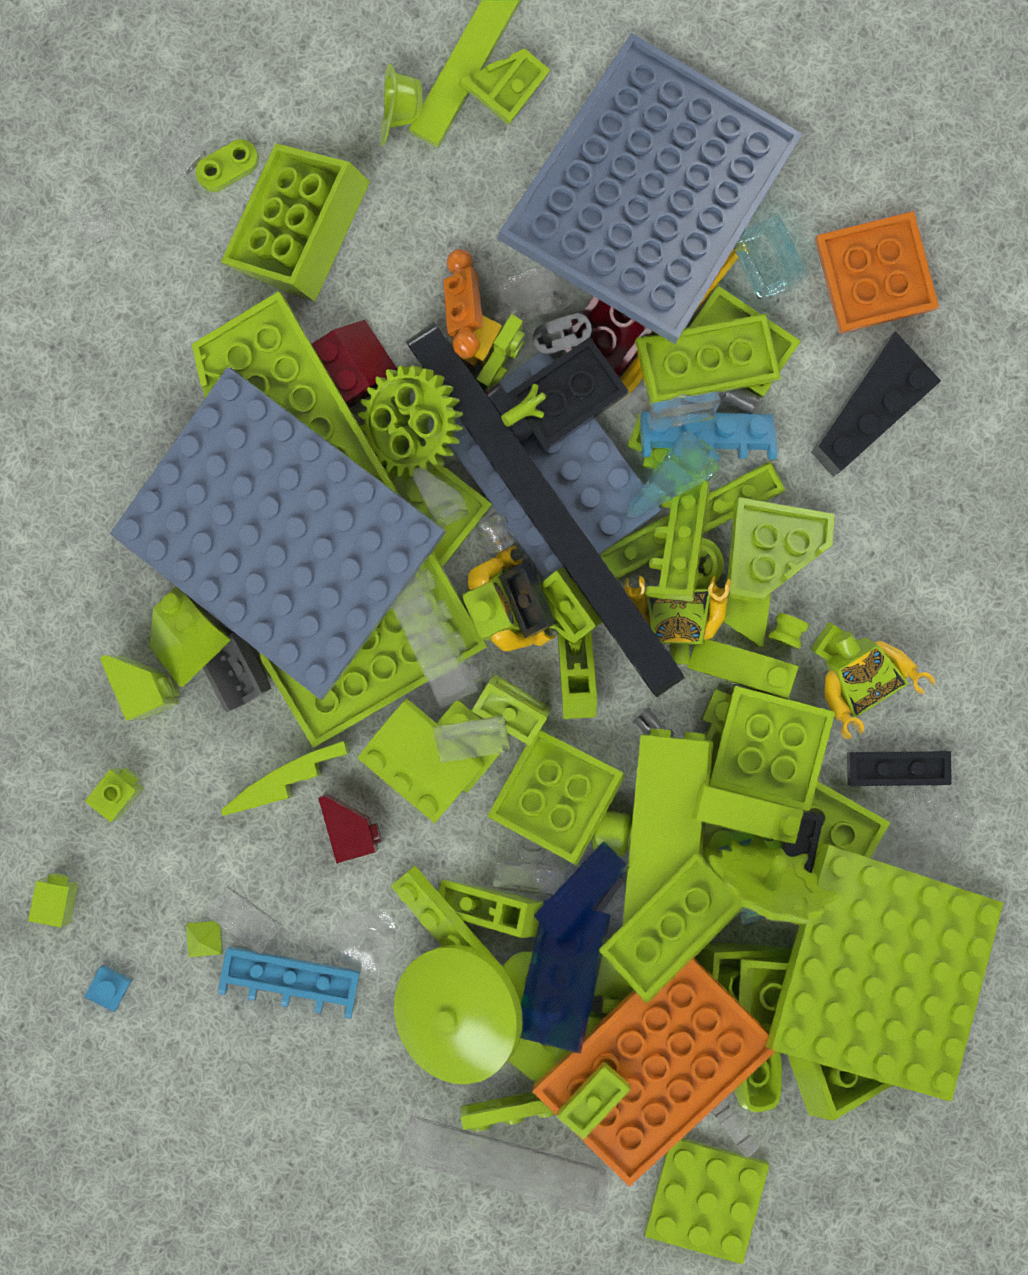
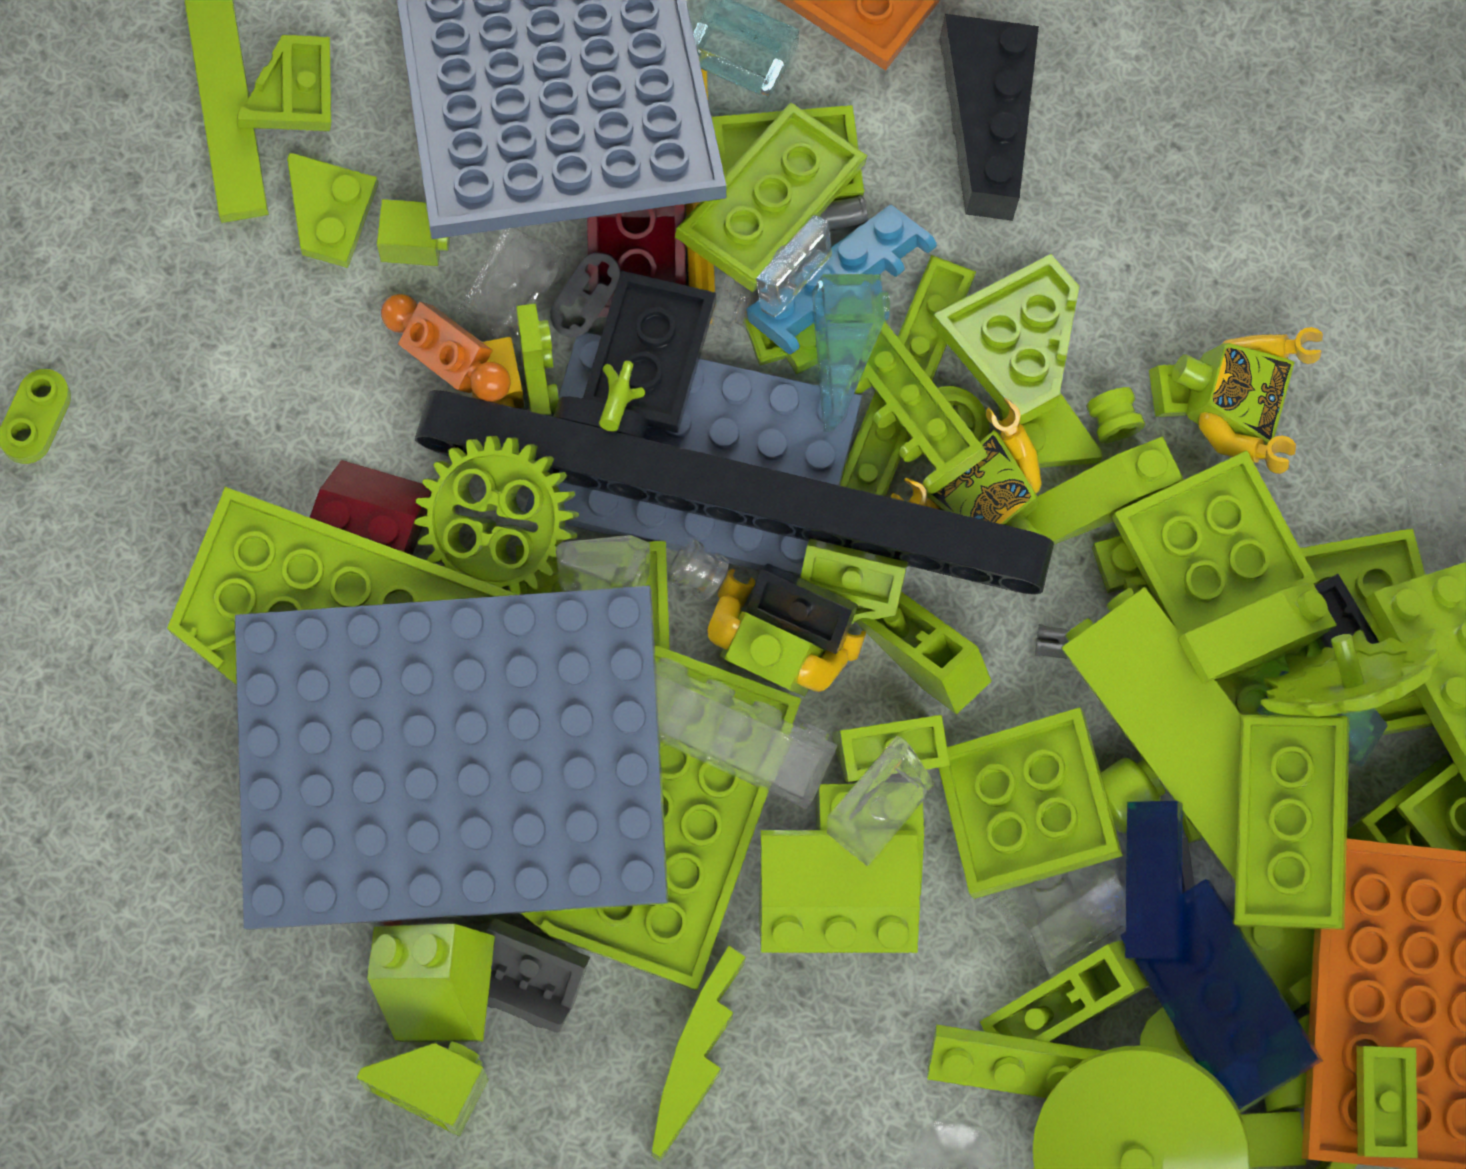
camera: 50 degrees left, 15 degrees down
(296, 220) = (169, 411): lime slope -> none
(348, 829) = (822, 1050): dark red slope -> none
(401, 101) = (184, 195): lime piece -> none
(472, 170) = (329, 207): none -> lime wing
(493, 216) = (406, 234): none -> lime brick
(899, 768) = (1366, 465): black plate -> none

